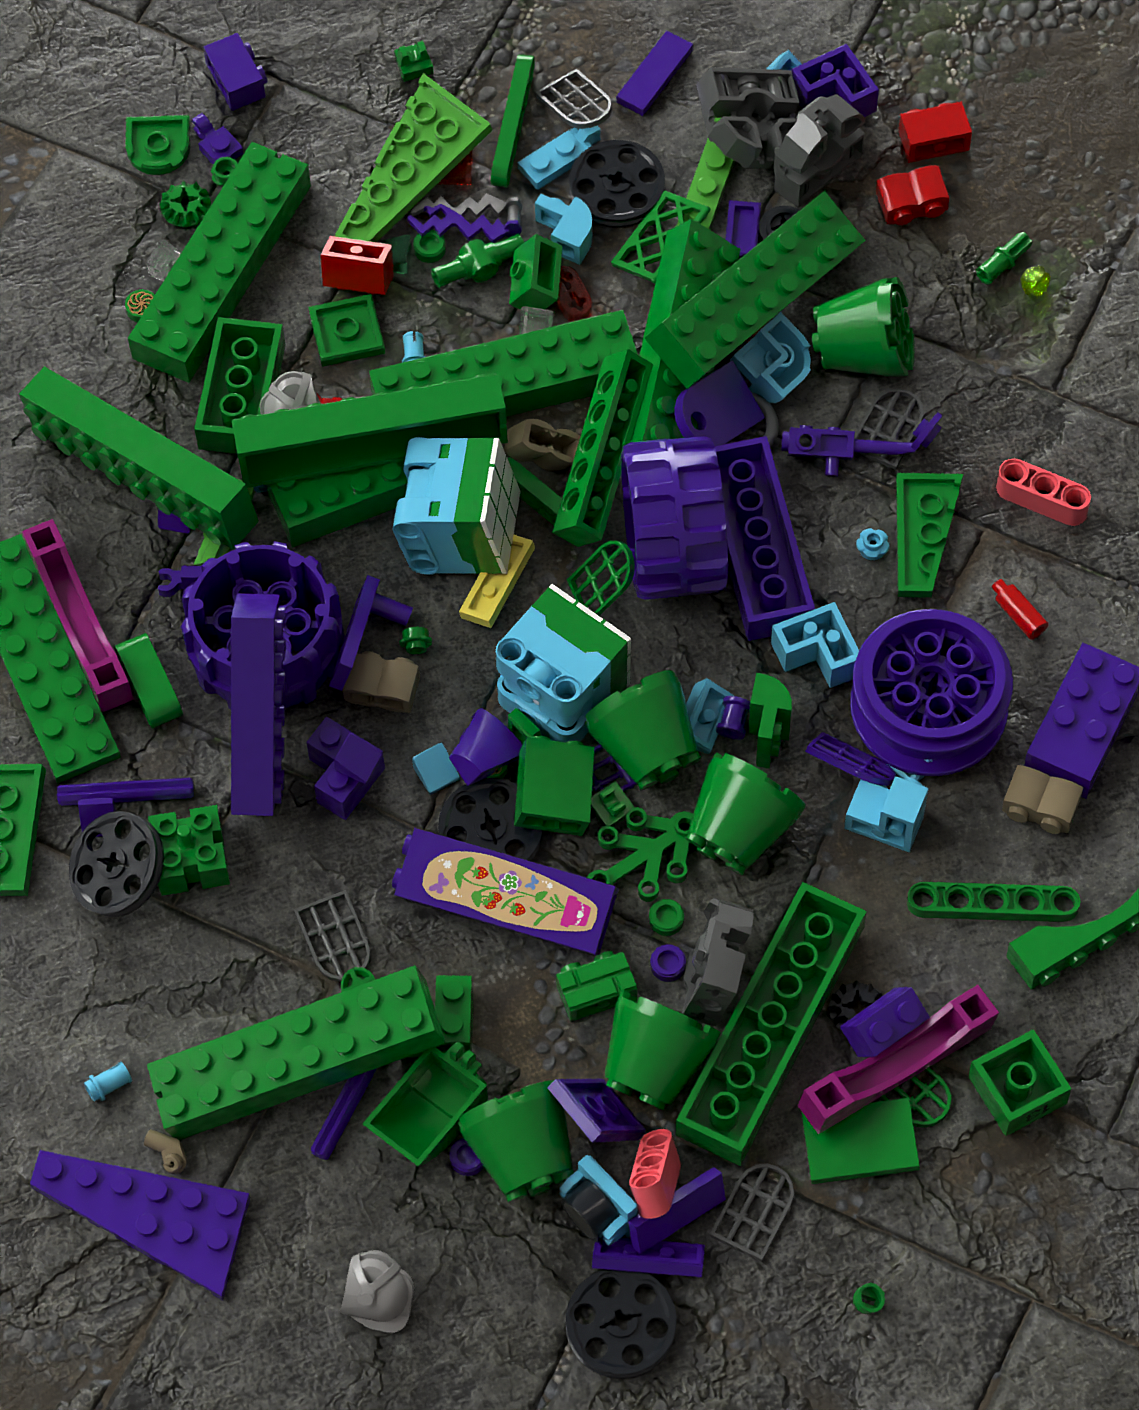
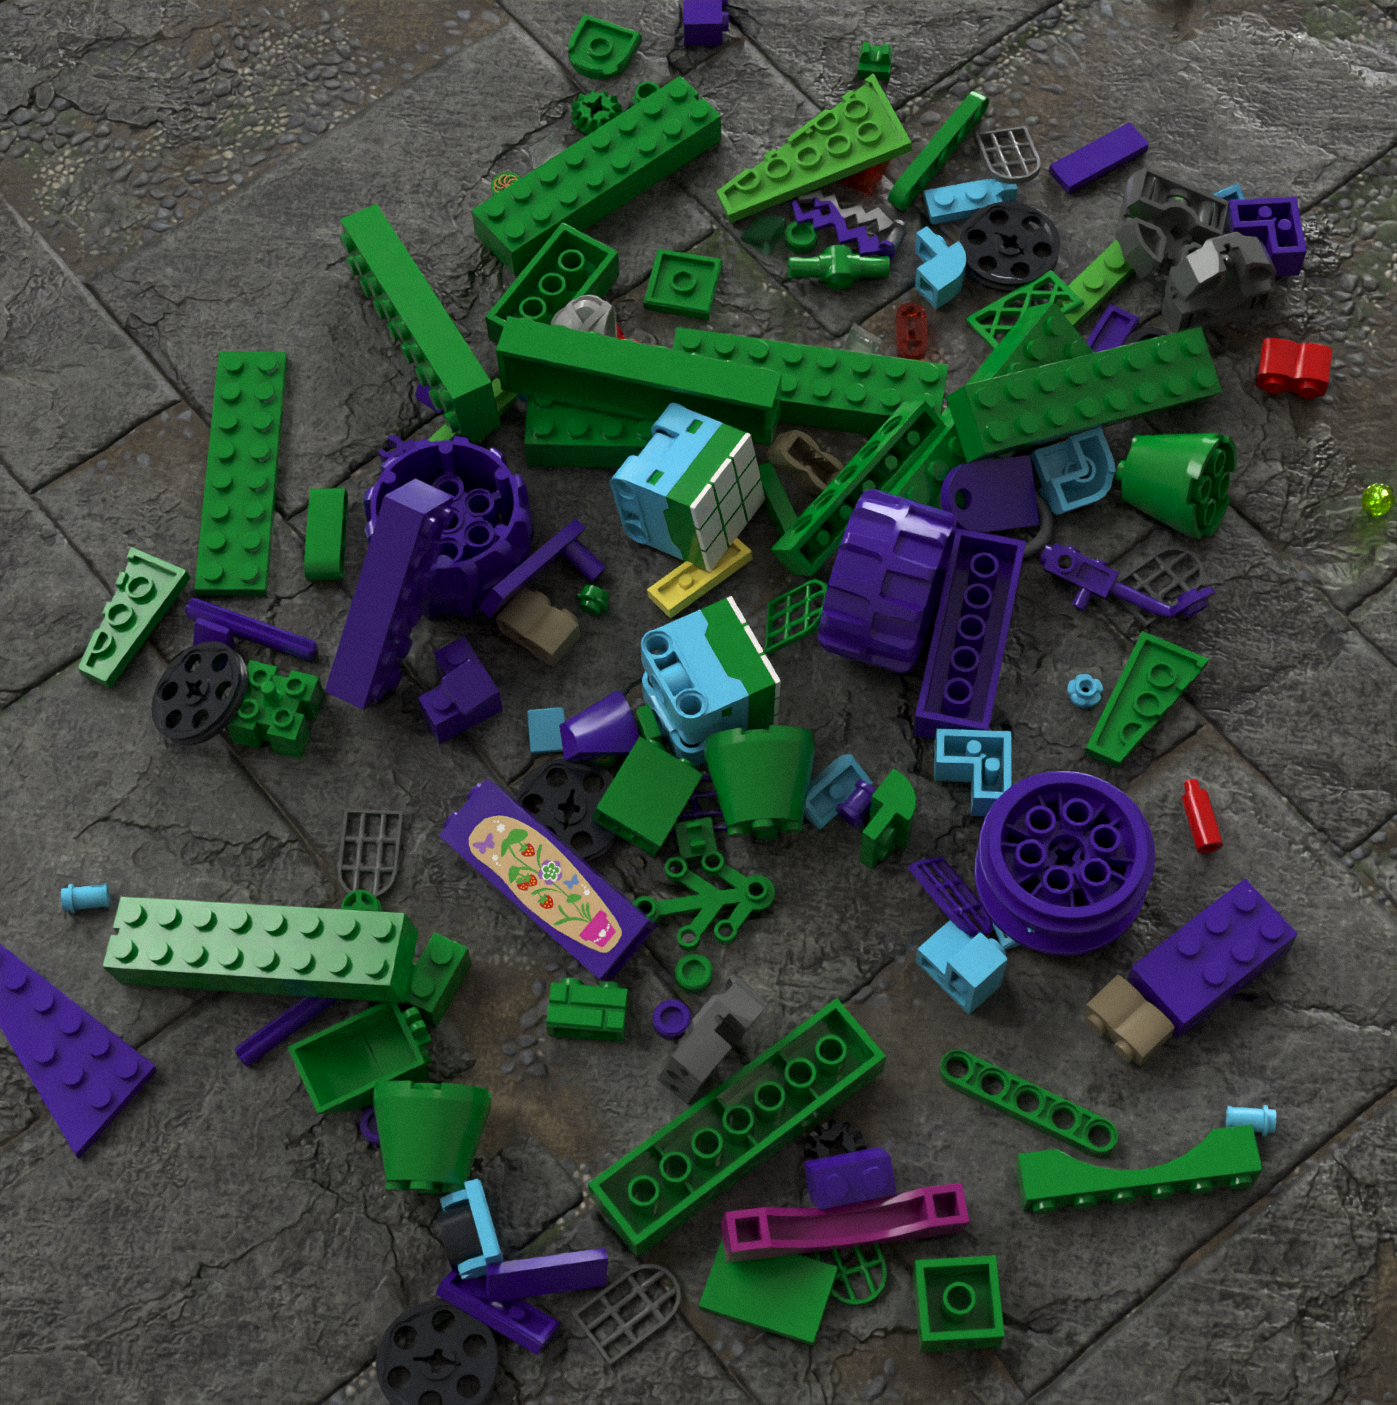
camera: 25 degrees right, 0 degrees up
(77, 616) = (291, 479): magenta arch -> none
(170, 1148) = (108, 989): dark tan arm -> none
(215, 143) = (653, 67): dark purple plate -> none
(357, 265) = (720, 226): red brick -> none
(378, 1292) = (216, 1220): light grey helmet -> none
(413, 350) = (735, 326): medium azure pin -> none
(535, 273) = (884, 299): green brick -> none
(597, 1110) = (515, 1137): dark purple tile -> none
(654, 1050) = (605, 1101): green cone -> none
(655, 1173) = (540, 1228): coral beam -> none
(740, 813) = (809, 903): green cone -> none
(935, 131) = (1346, 315): red brick -> none
(1003, 258) = (1356, 464): green axle -> none
(1052, 505) = (1285, 727): coral beam -> none

